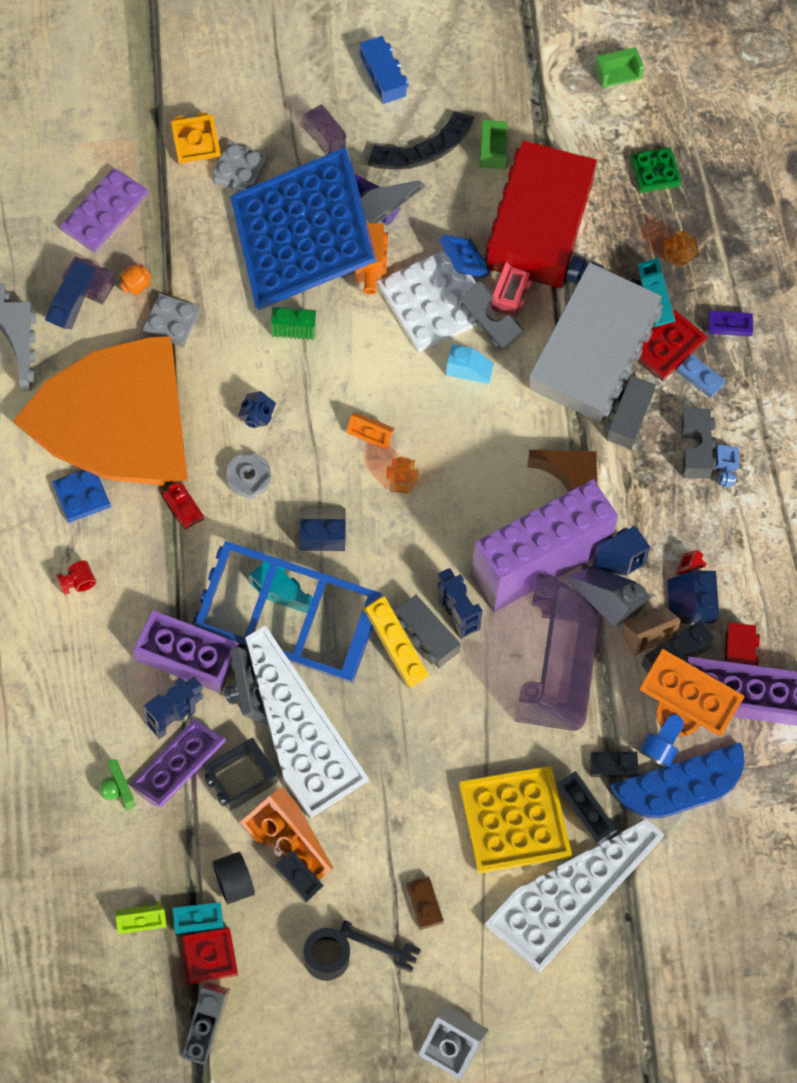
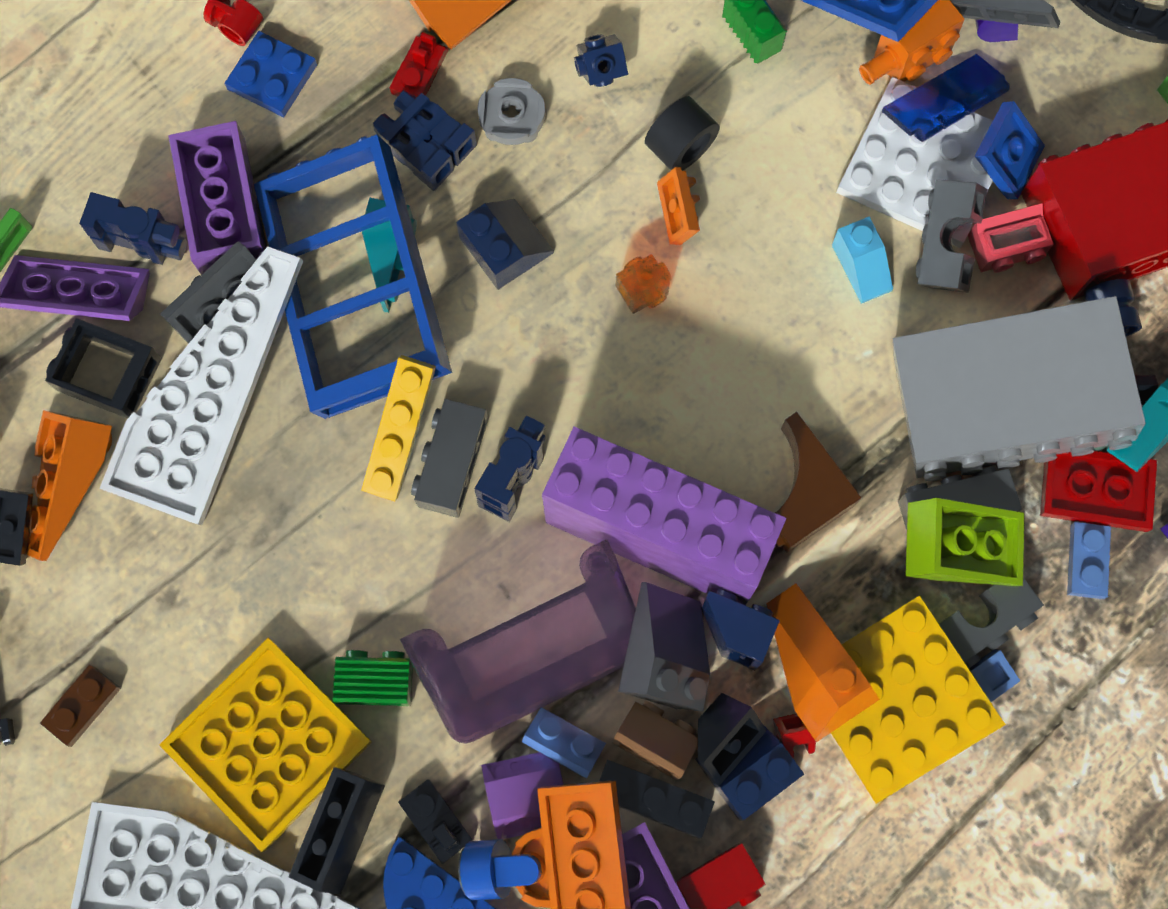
camera: 60 degrees right, 10 degrees up
(124, 582) = (271, 74): none -> blue plate
(223, 522) = (425, 144): none -> dark blue hips
(334, 399) = (682, 134): none -> black piece
(412, 263) = (947, 98): none -> clear blue windscreen
(520, 744) = (373, 680): none -> green brick
(618, 675) = (563, 742): none -> medium blue plate
(631, 710) = (514, 794): none -> medium lavender slope
(655, 420) = (964, 543): none -> lime slope
(669, 527) = (818, 670): none -> orange wedge
(670, 591) = (726, 736): none -> black slope
(708, 506) = (926, 702): none -> yellow plate

